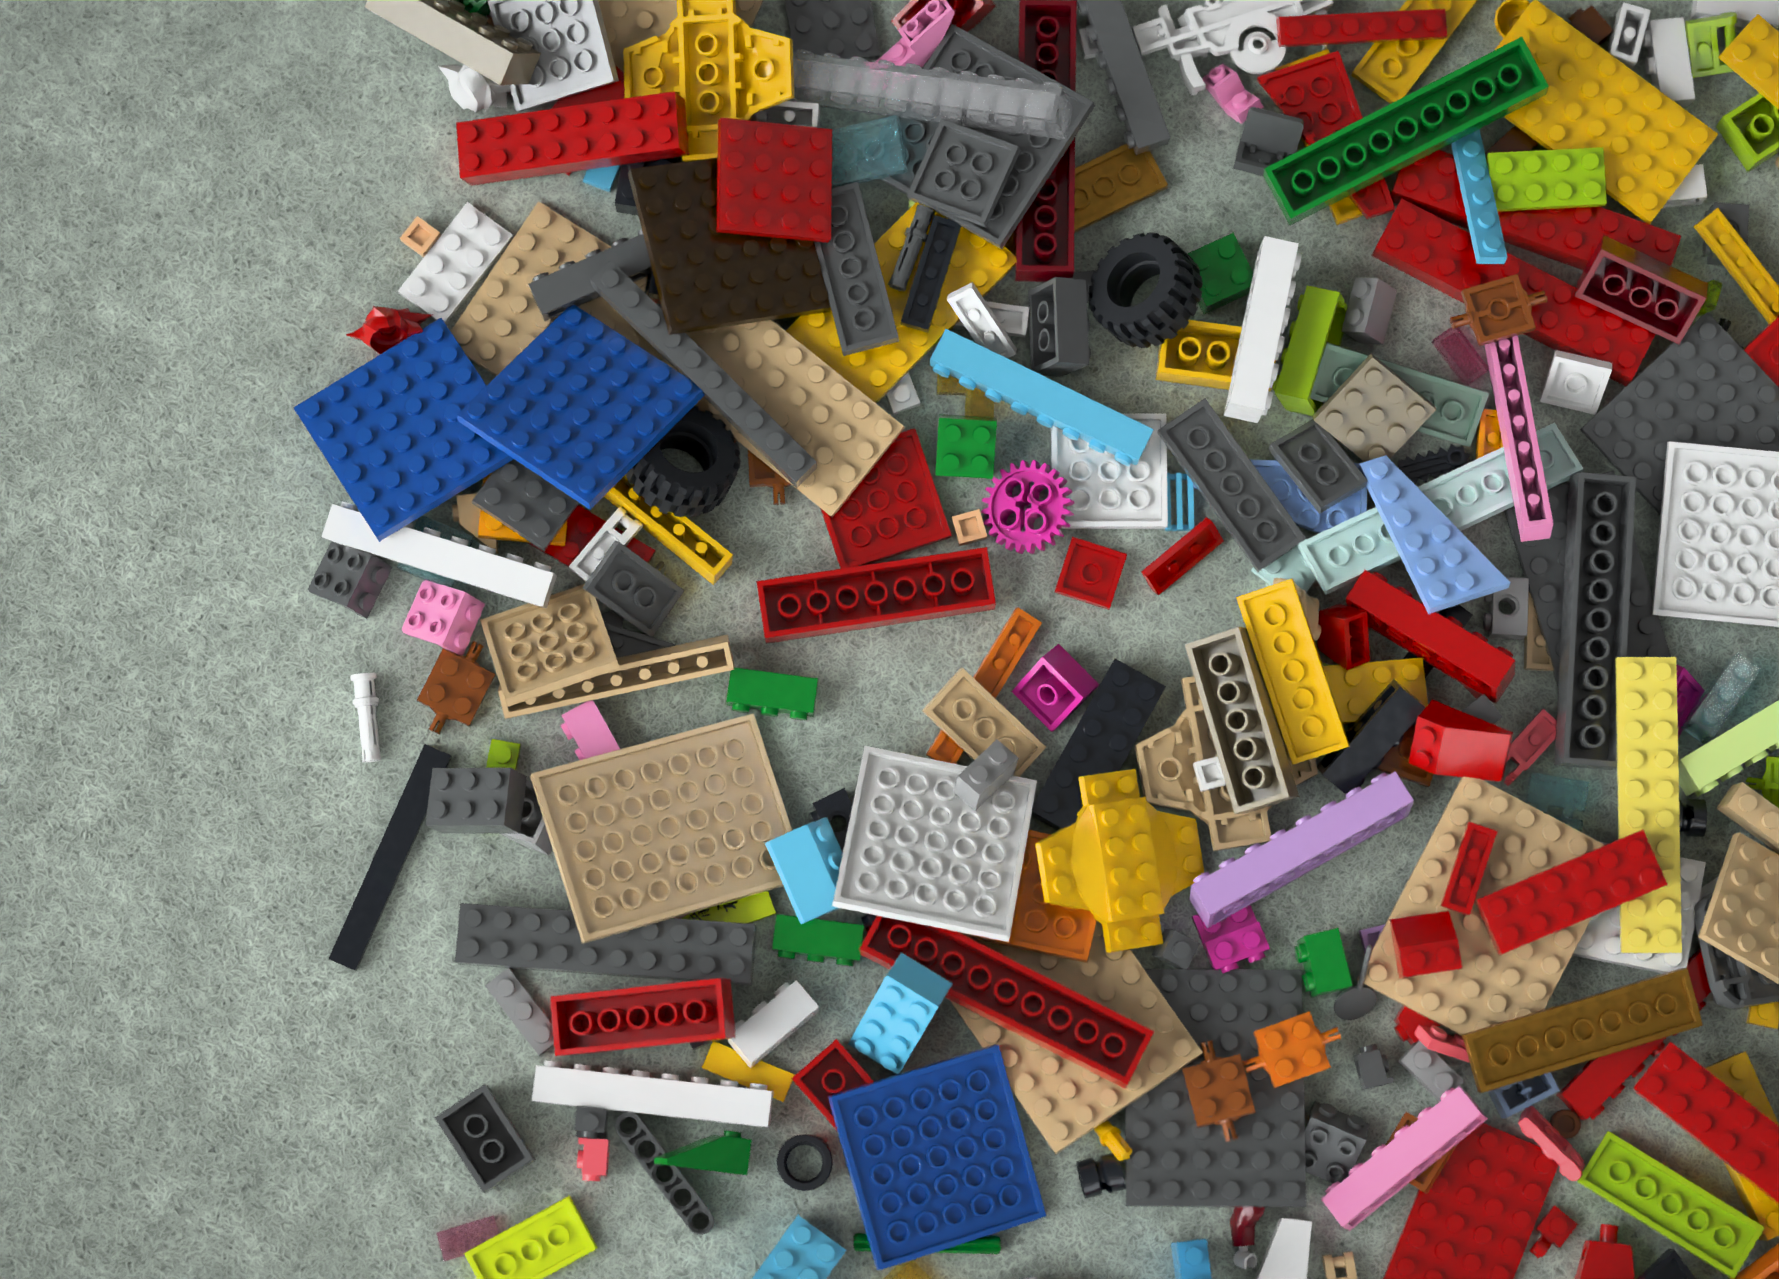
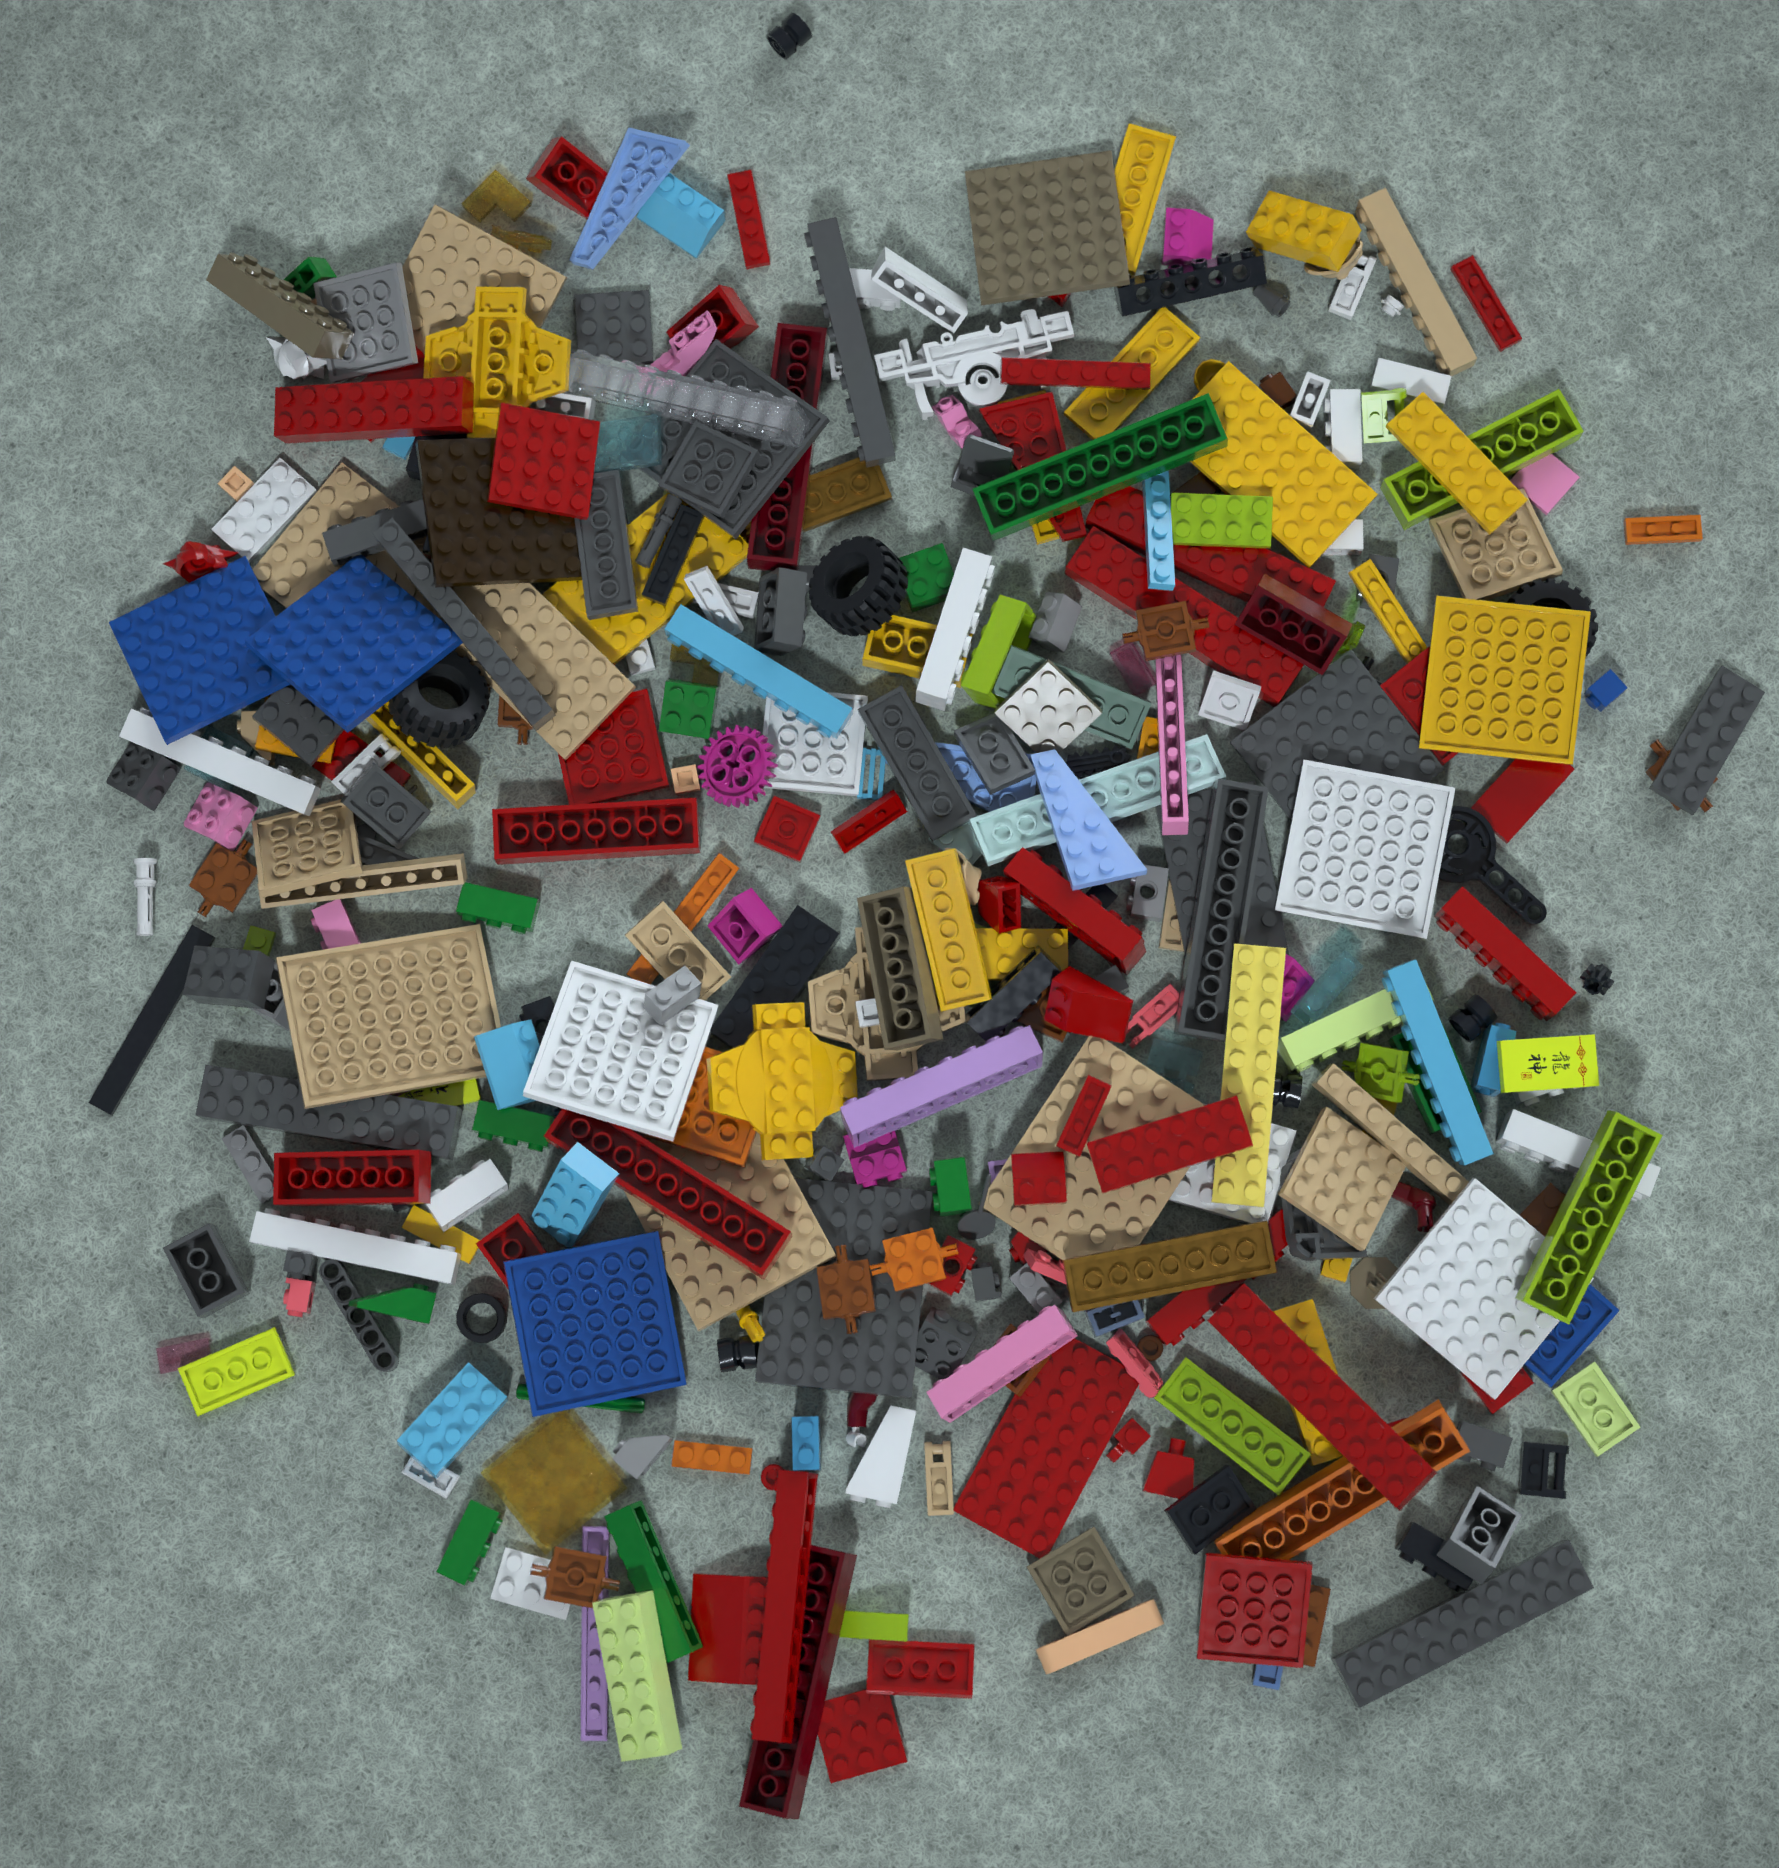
camera: 10 degrees right, 0 degrees up
(1346, 1045) = (965, 1259): none -> red brick

